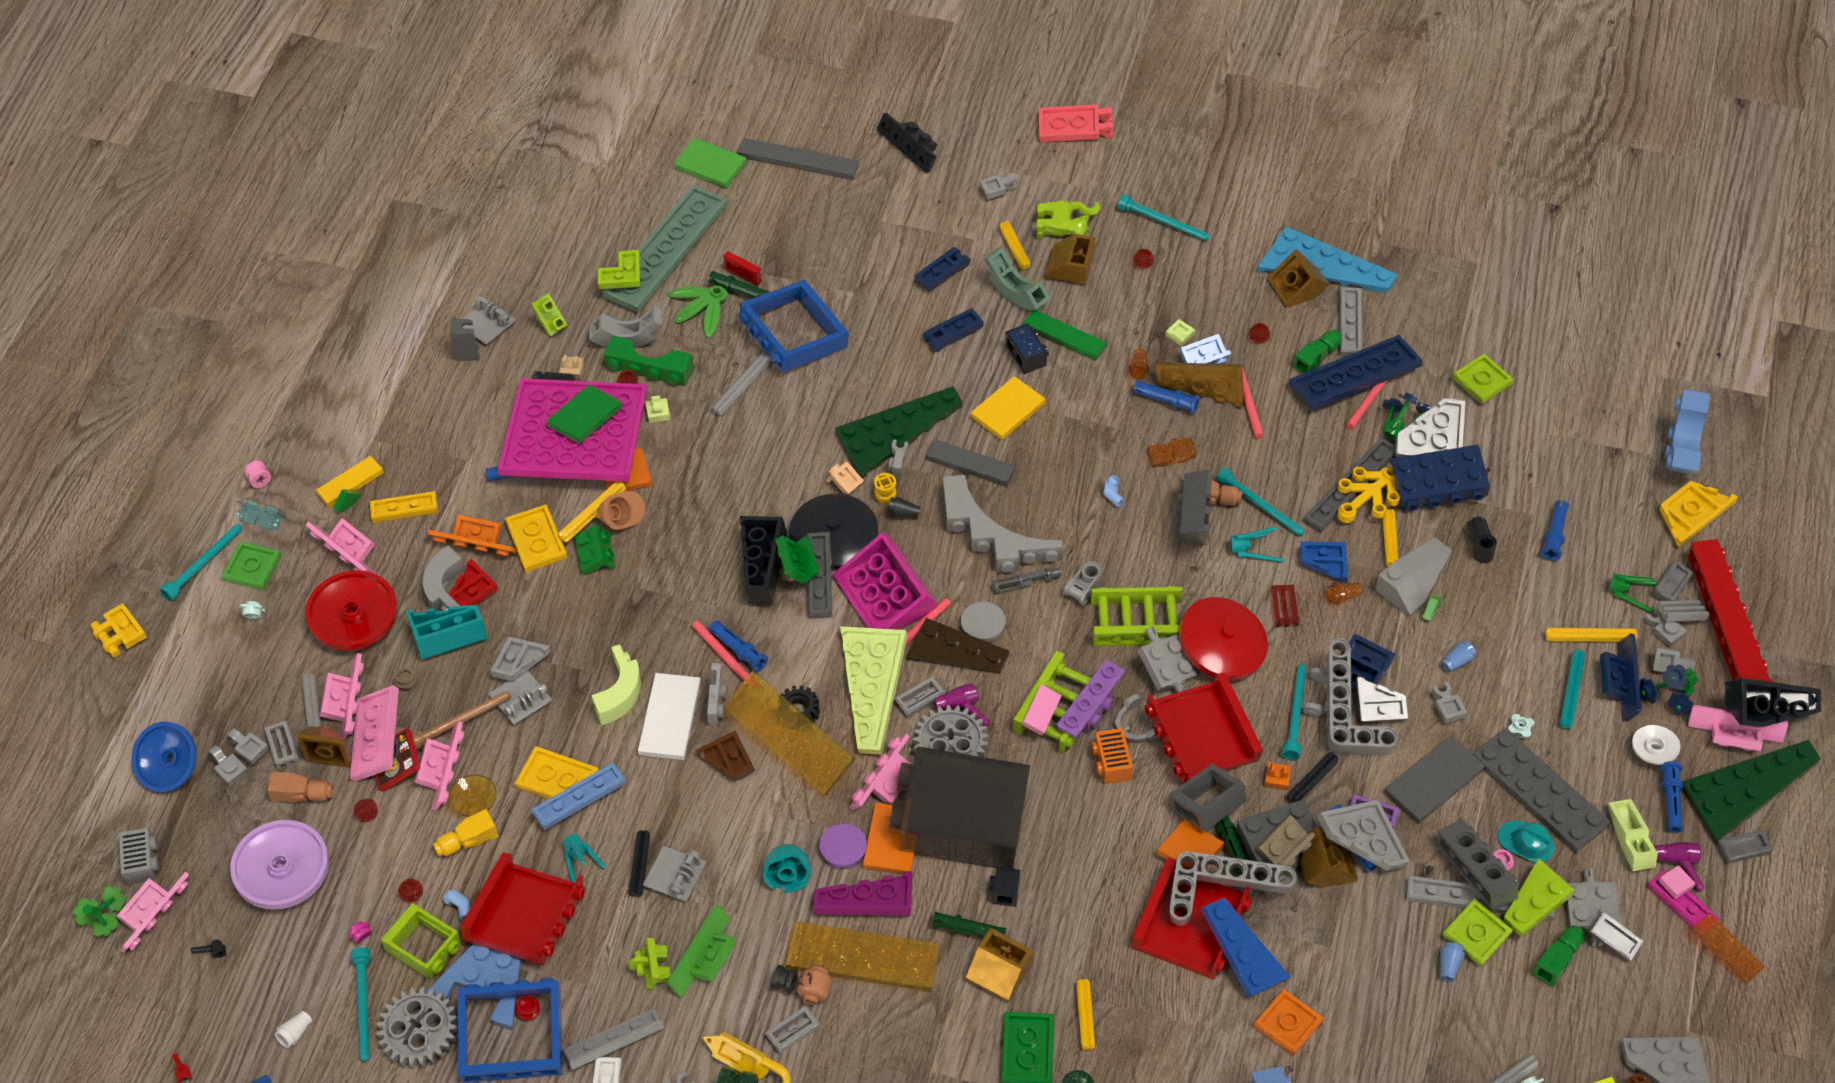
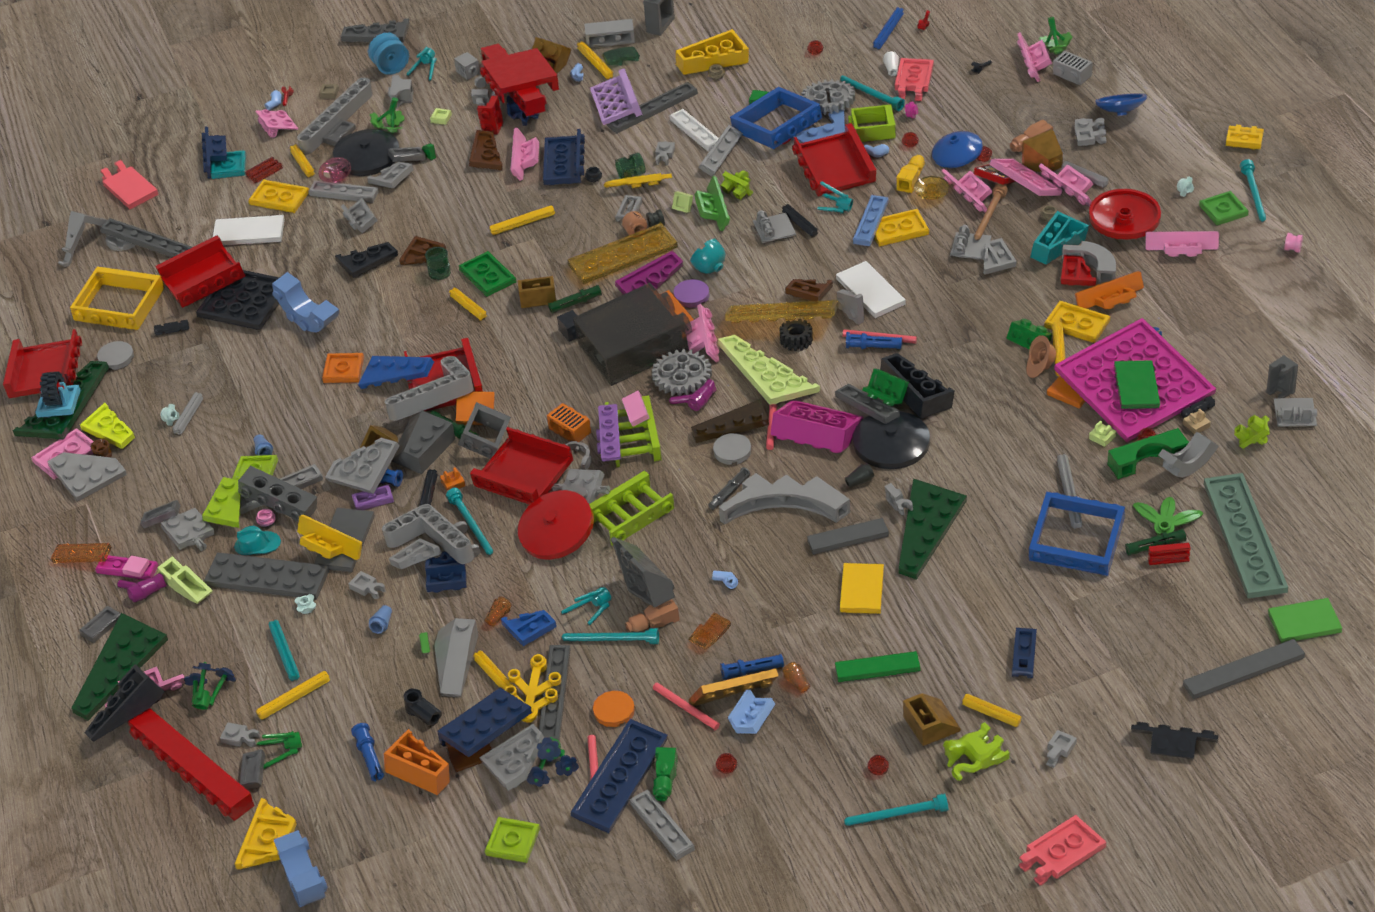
camera: 145 degrees right, 10 degrees down
(251, 511) = (1259, 229): clear light blue hinge -> none
(279, 864) = (990, 102): lavender dish -> none
(286, 759) = (1076, 152): light grey tile -> none
(296, 987) = (914, 76): none -> coral tile
(346, 499) = (1220, 266): green tile -> none
(351, 479) = (1235, 278): yellow tile -> none
(380, 846) = (957, 149): none -> blue dish
(403, 507) = (1182, 287): yellow tile -> none
(623, 276) = (1240, 485): lime plate -> none
(623, 694) = (914, 284): yellowish green arch -> none
(733, 984) = (682, 201): none -> yellowish green tile
(844, 477) = (920, 467): light nougat bracket -> none
(885, 487) = (885, 475): yellow wheel -> none
(921, 700) = (724, 397): light grey tile -> none
(953, 329) = (962, 614): dark blue plate -> none
(1014, 287) = (948, 672): sand green arch -> none
(1026, 348) = (892, 631): brick -> none
(1082, 584) = (685, 507): light grey piece -> none
(1180, 332) = (790, 727): yellowish green tile -> none
(1285, 620) = (524, 579): clear red tile -> none
(1285, 842) = (408, 425): dark tan bracket -> none
(1297, 280) = (726, 822): pearl gold slope -> none
(1311, 437) = (613, 708): none -> orange tile
(1331, 261) = (737, 859): dark azure wing -> none
(1466, 769) = (327, 540): none -> yellow bracket
(1524, 482) = (416, 764): none -> orange wedge
(1559, 955) = (193, 485): green piece -> none
(1621, 676) = (253, 673): dark blue bracket -> none
(1656, 744) = (195, 637): white dish -> none
(1666, 656) = (223, 707): light grey plate -> none
(1672, 787) = (171, 626): blue pin -> none
(1682, 610) = (225, 741): light grey tile -> none

